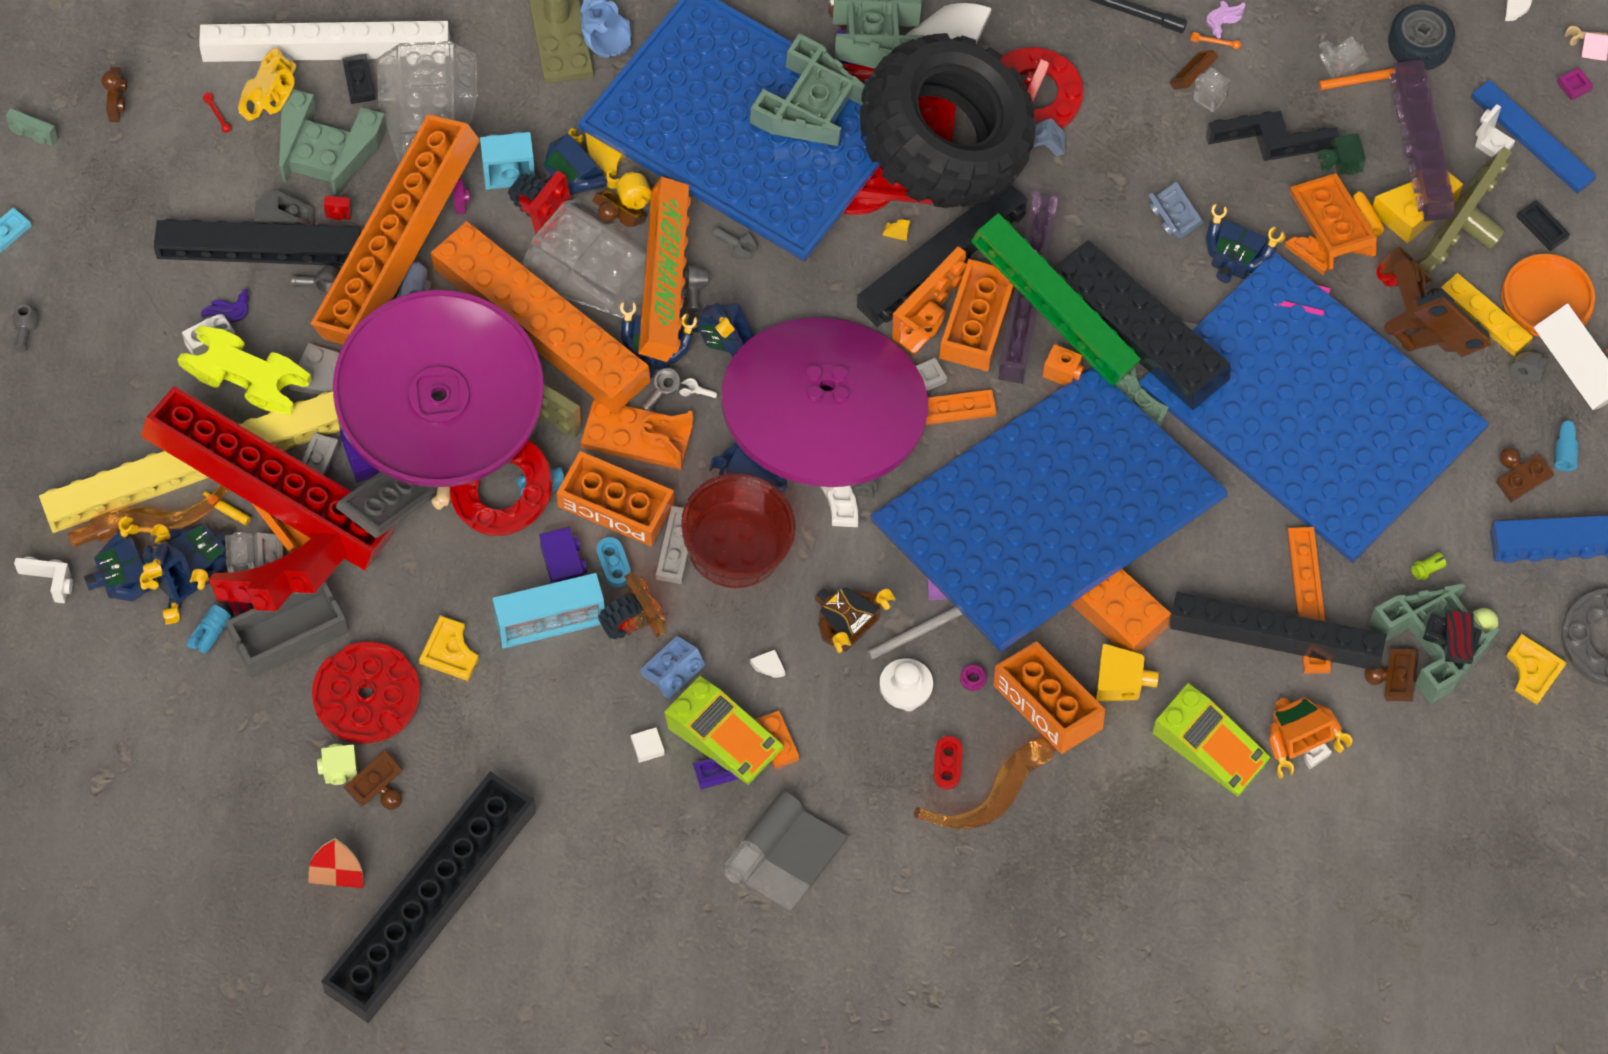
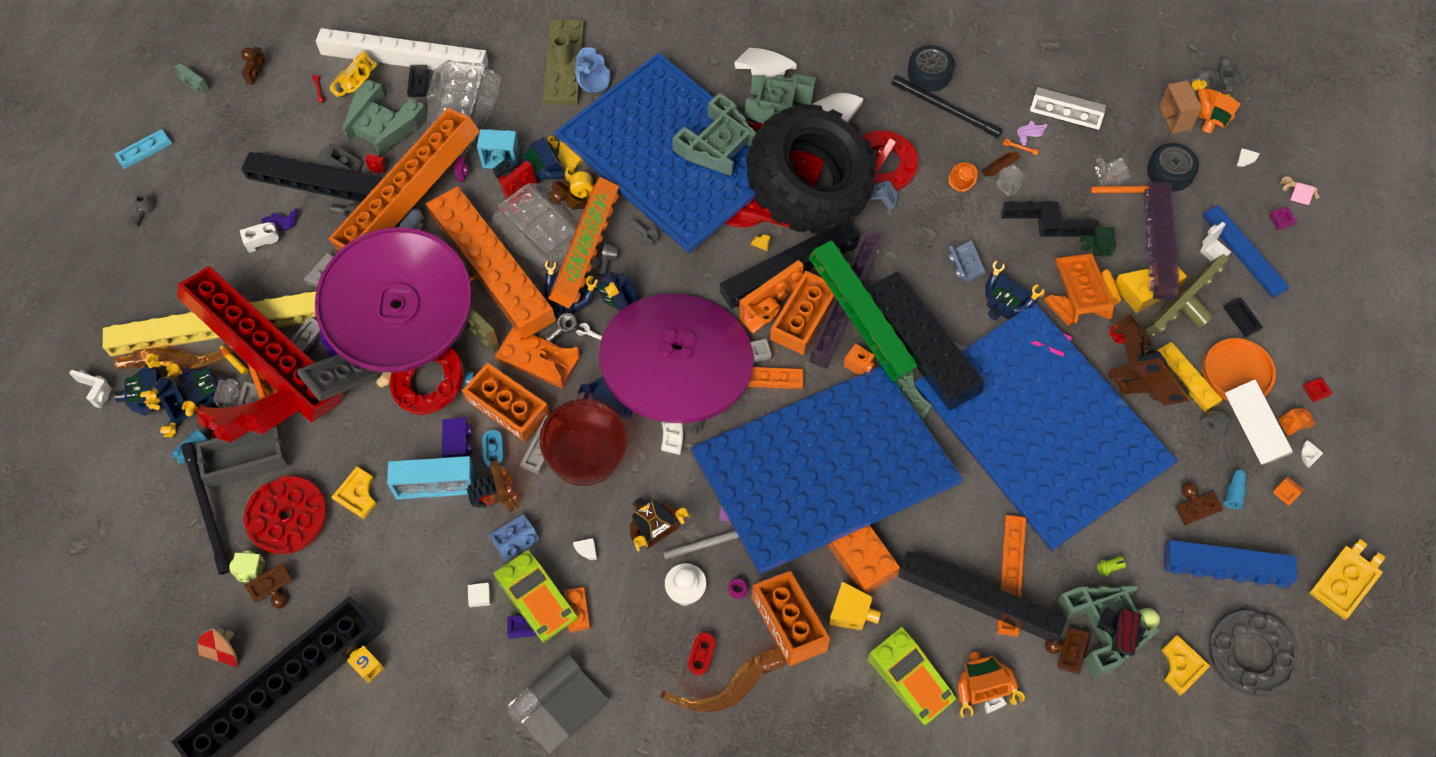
camera: 15 degrees right, 0 degrees up
(229, 362) = (280, 272): neon yellow piece -> none
(297, 758) = (219, 554): none -> black piece
(529, 851) = (365, 664): none -> yellow brick
(1147, 95) = (963, 176): none -> orange hair

